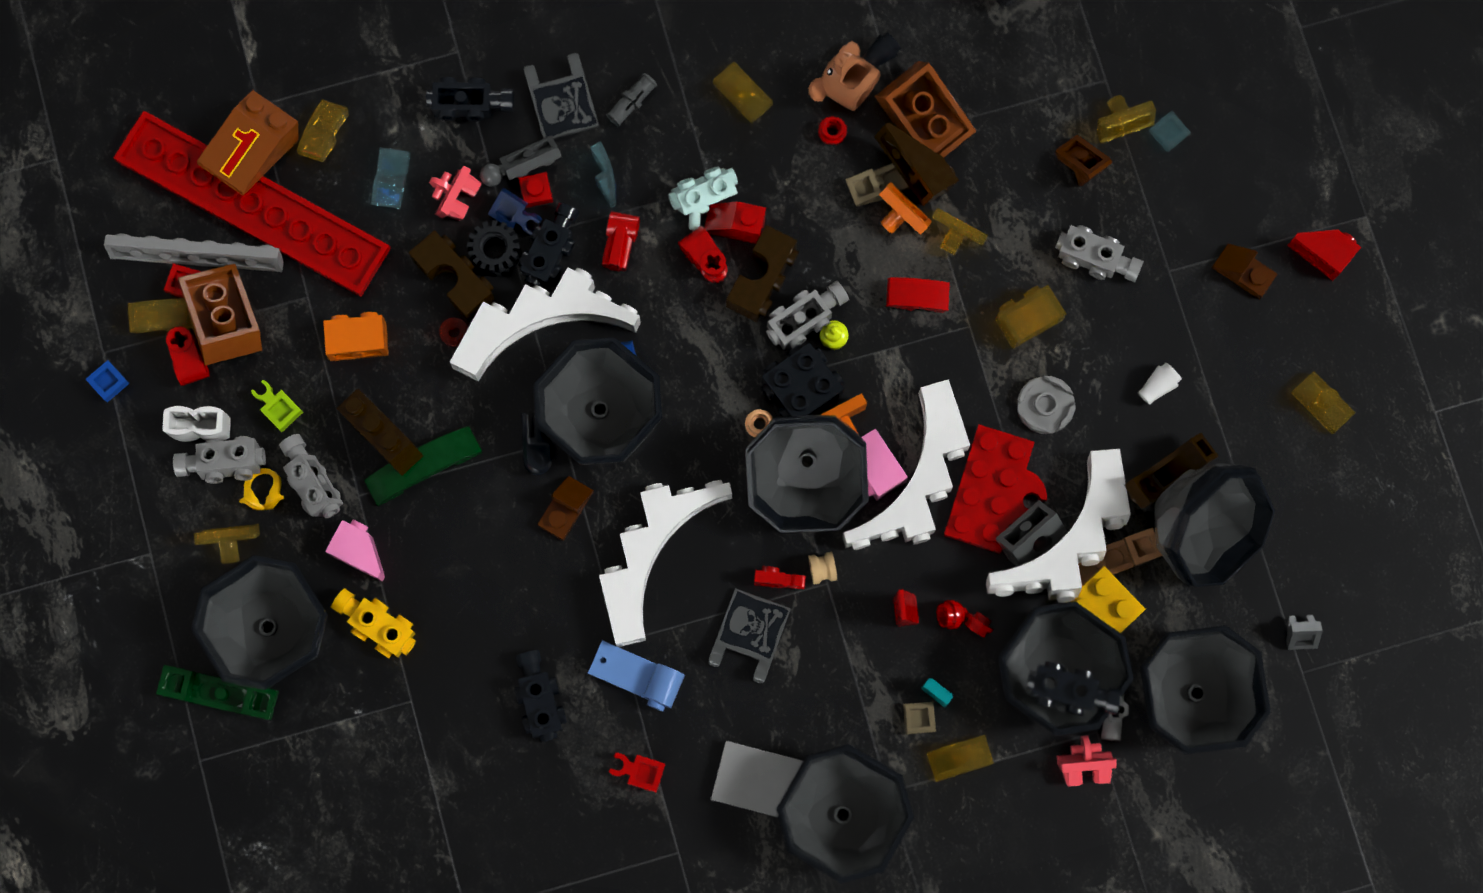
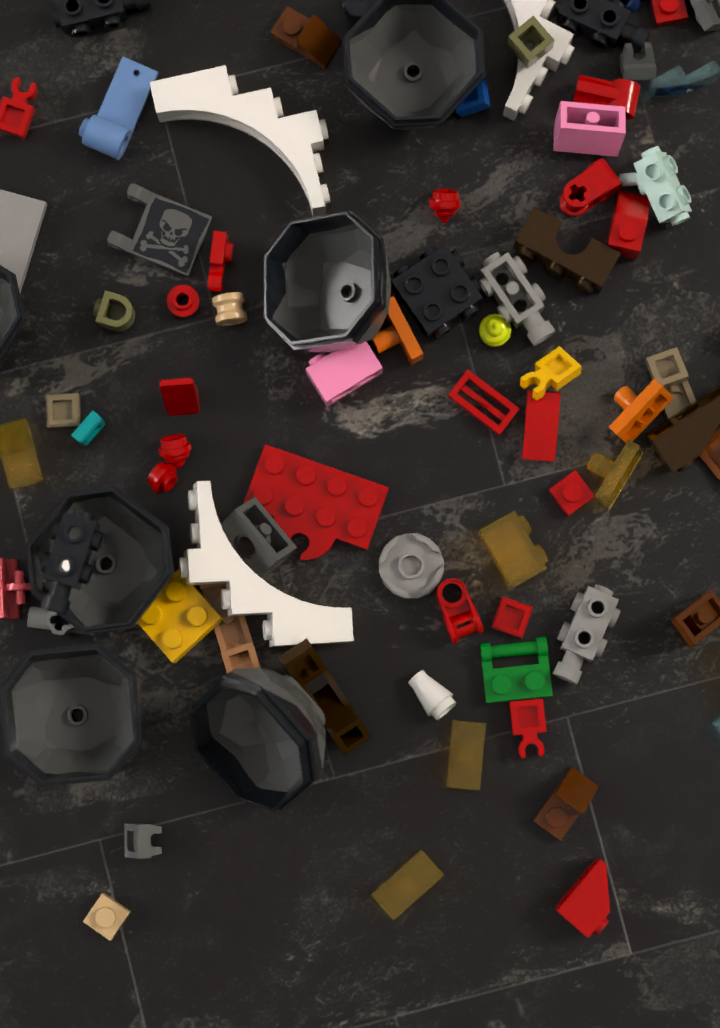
camera: 95 degrees right, 5 degrees up
(578, 292) = (532, 33): none -> olive plate
(592, 213) = (637, 65): none -> dark grey tile
(653, 253) = (589, 128): none -> bright pink brick
(719, 380) = (444, 203): none -> red plate
(752, 417) = (401, 238): light nougat plate -> none
(812, 620) = (188, 309): none -> red plate
(829, 672) = (114, 312): none -> olive plate
(870, 283) = (552, 370): none -> yellow plate
(884, 364) = (505, 419): none -> red tile
(910, 513) = (374, 445): white arch -> none
(976, 268) = (571, 493): none -> red plate
(1086, 318) = (511, 617): none -> red tile
(1088, 360) = (458, 612): none -> red piece
(1142, 313) = (516, 681): none -> green plate
(1177, 303) = (528, 719): none -> red plate
(1208, 355) = (466, 755): none -> clear yellow tile
(1370, 662) = (106, 916): none -> tan plate

